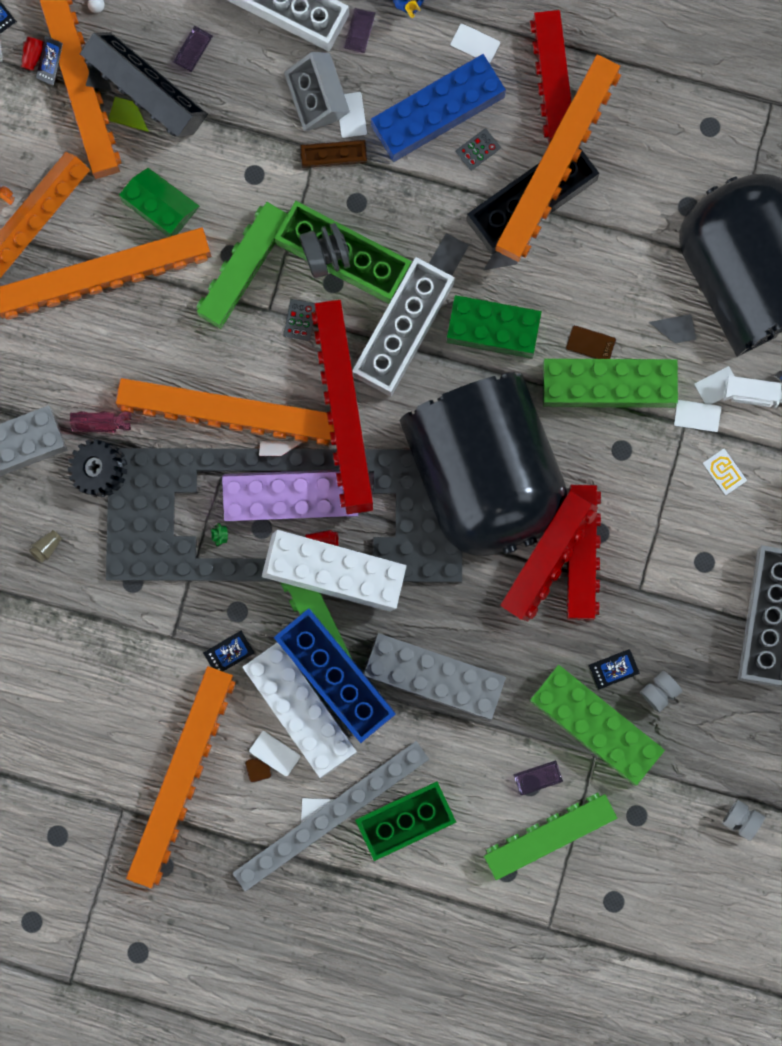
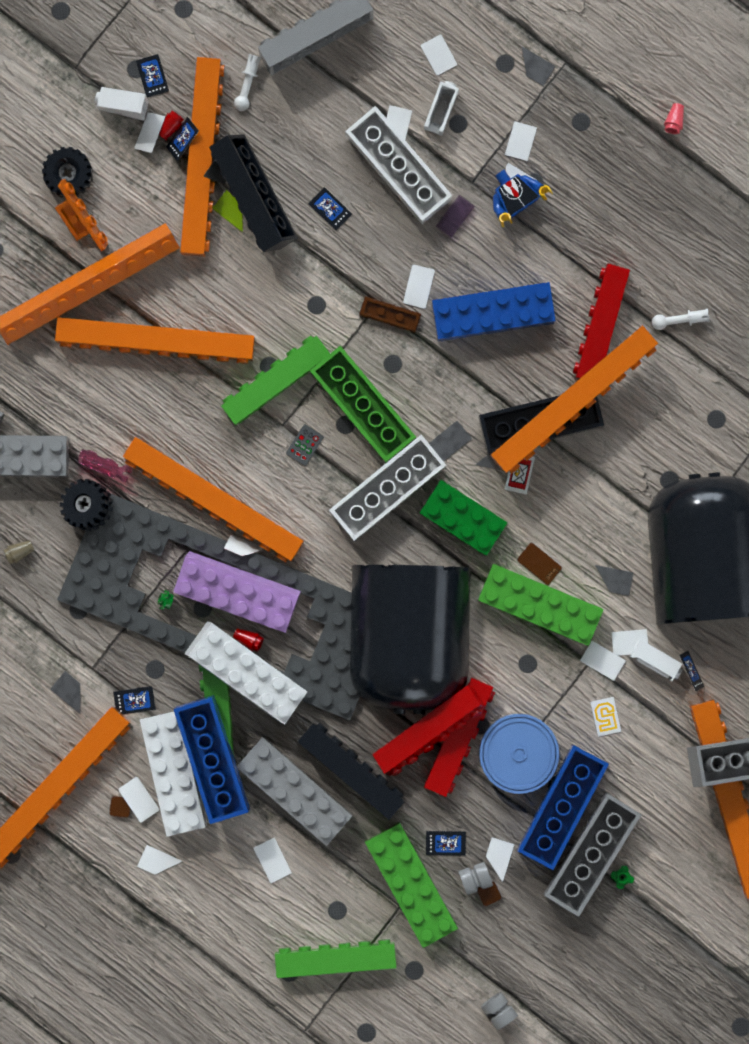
camera: 20 degrees right, 5 degrees up
(13, 68) = (149, 132): none -> white sticker
(155, 669) = (68, 690): none -> flat silver sticker
(158, 202) = (227, 297): green slope -> none
(193, 49) = (308, 176): clear purple tile -> none
(229, 73) = (330, 208): none -> black sticker
(316, 91) = (397, 255): light grey slope -> none
(325, 250) = (346, 401): dark grey wheel -> none
(330, 816) = (164, 869): light grey plate -> none
(343, 407) = (309, 538): red brick -> none
(405, 821) = (222, 899): green brick -> none
(442, 761) = (272, 860): none -> white sticker
(475, 42) = (548, 266): white sticker -> none
(478, 149) = (513, 359): dark grey sticker -> none
(485, 630) = (351, 770): none -> black brick
(534, 265) = (520, 479): none -> sticker
(538, 778) = (346, 907): clear purple tile -> none
(613, 52) = (659, 321): none -> white pin
(652, 544) = (519, 753): none -> medium blue brick
(675, 659) = (499, 855): none -> white sticker
(682, 704) = (489, 894): none -> reddish brown piece
(720, 580) = (562, 807): none -> blue brick

